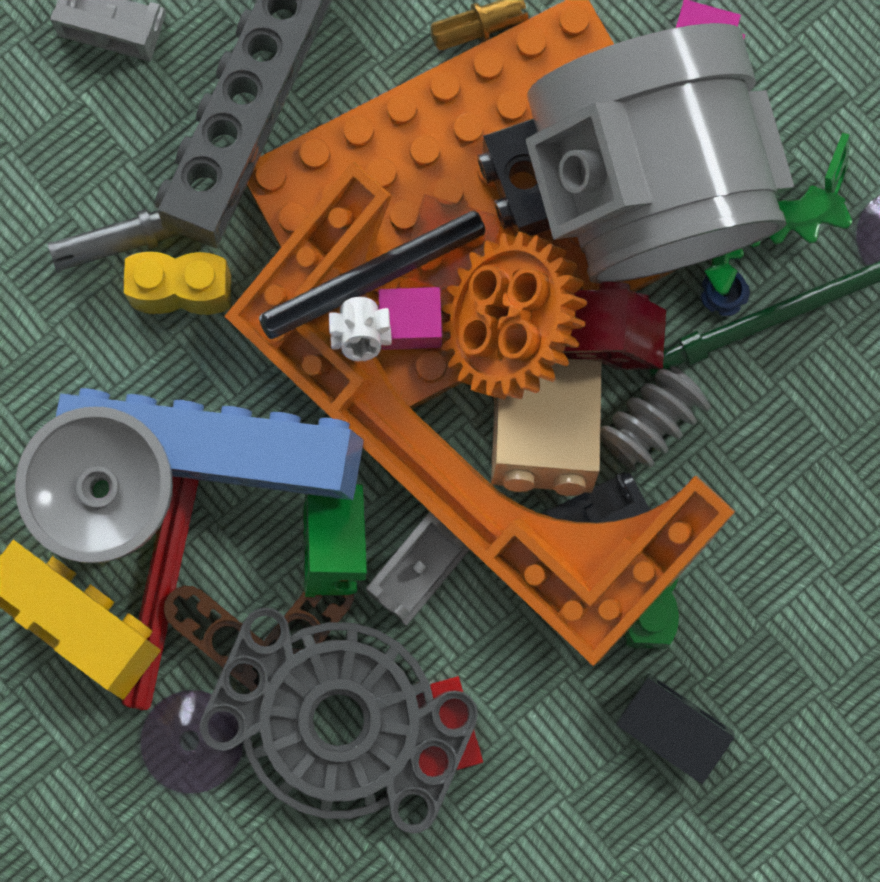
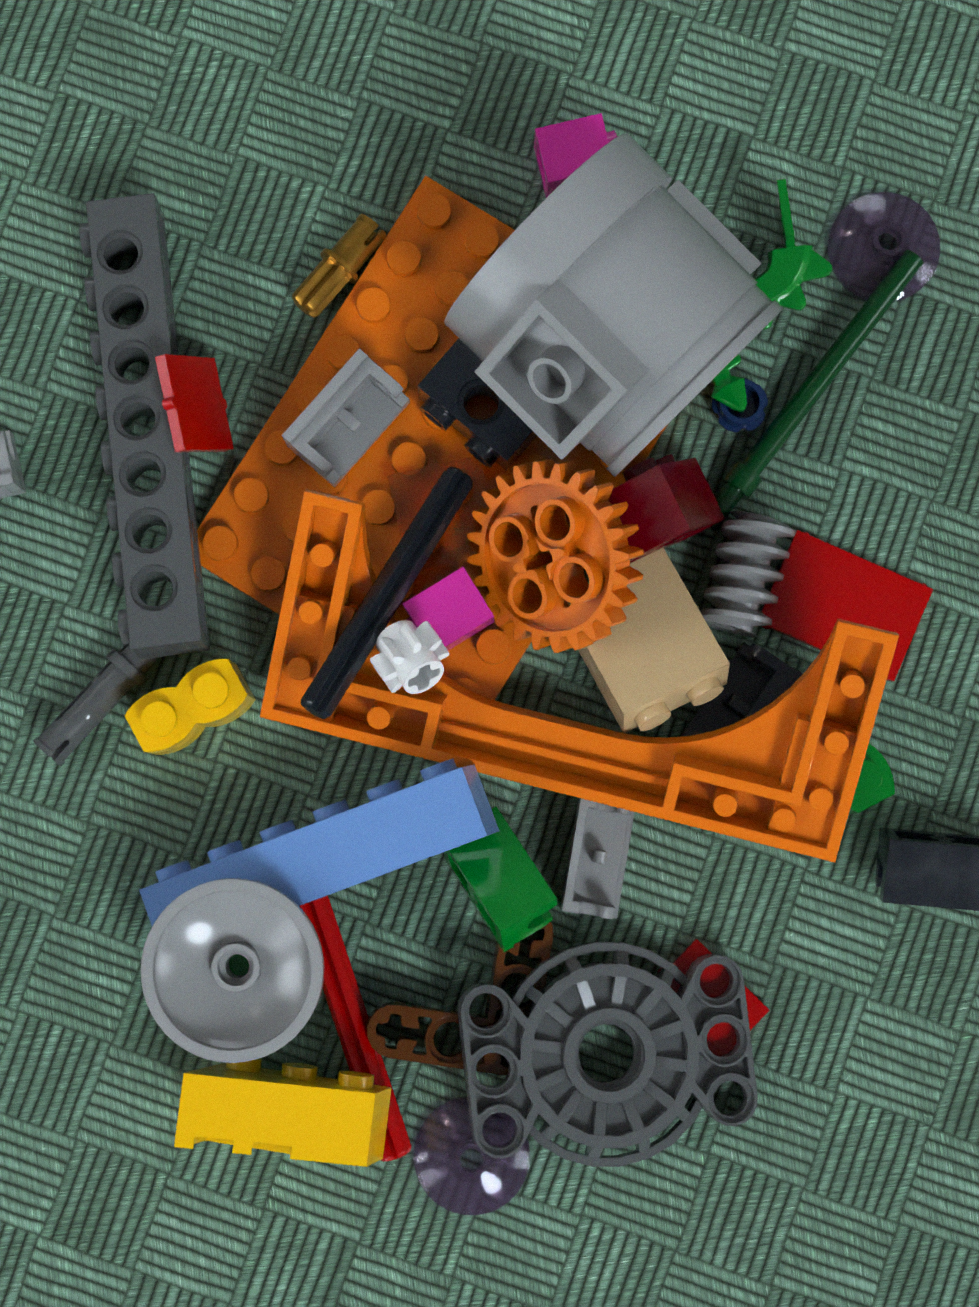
camera: 30 degrees left, 5 degrees up
(311, 61) = (194, 403): none -> red piece
(417, 133) = (346, 418): none -> light grey hinge
(727, 468) = (833, 584): none -> red piece

